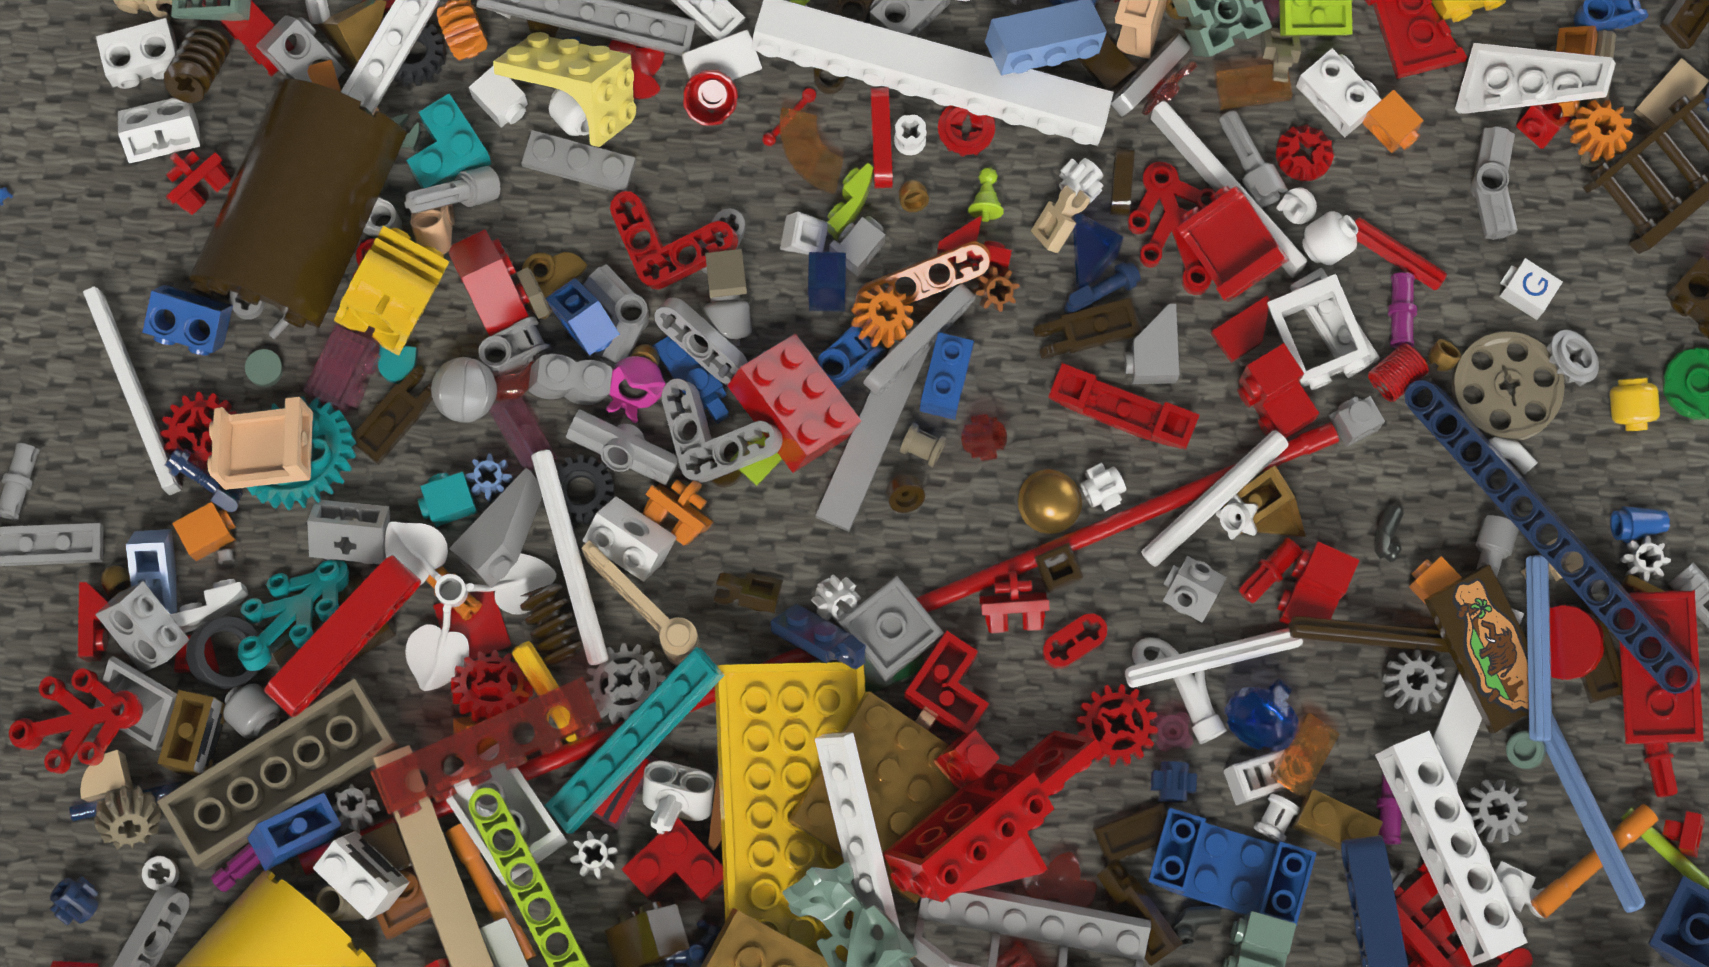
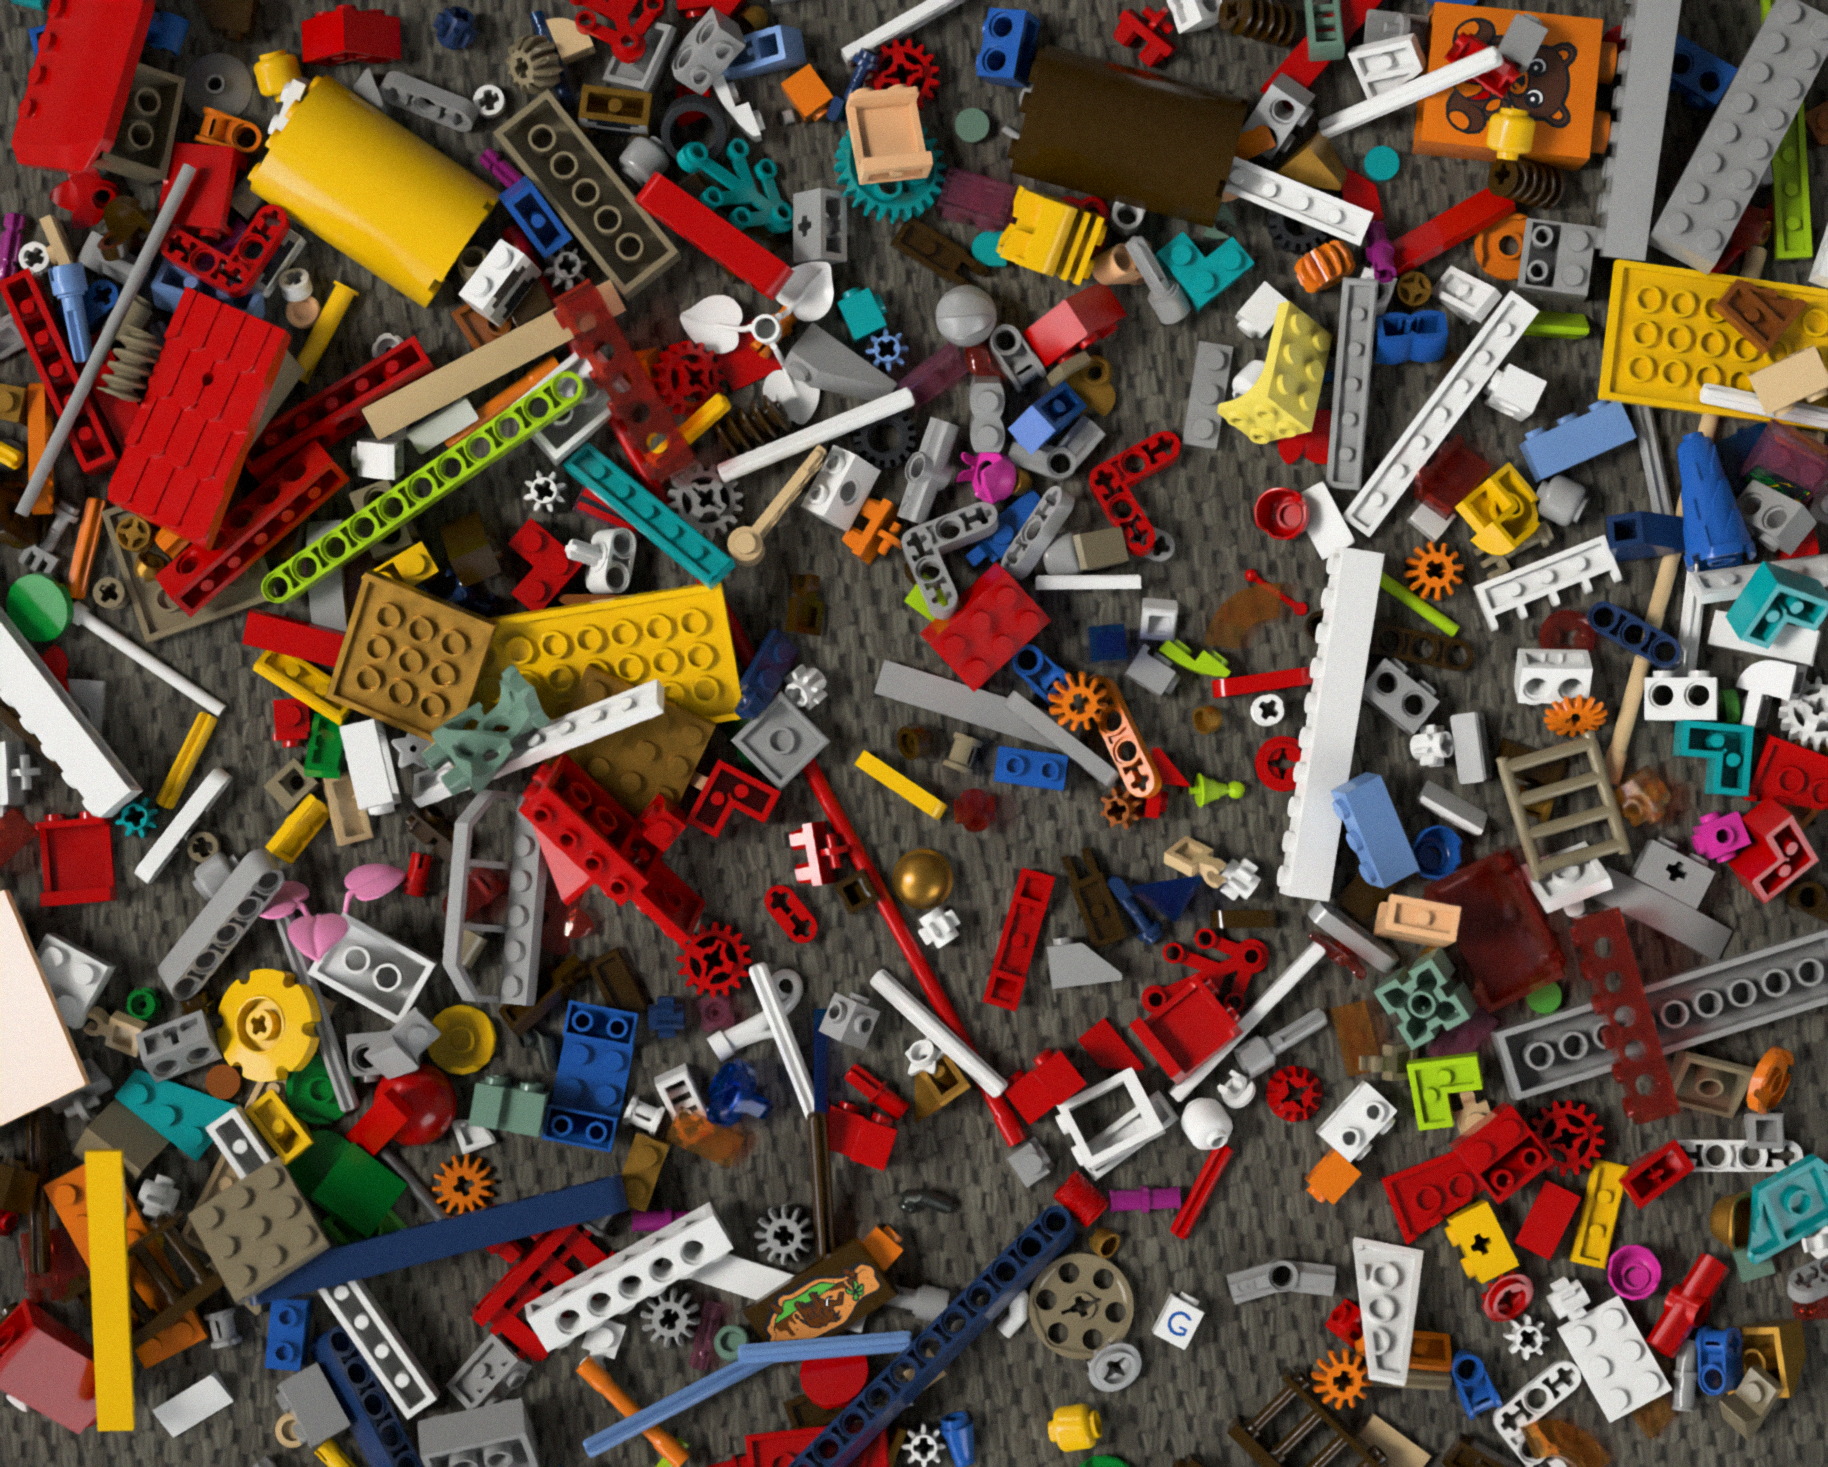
camera: 85 degrees right, 10 degrees up
(758, 298) = (1053, 582): none -> white tile
(955, 504) = (901, 785): none -> yellow beam
(1233, 624) = (820, 1063): none -> clear blue bar
(1515, 776) = (705, 1335): none -> clear pink axle

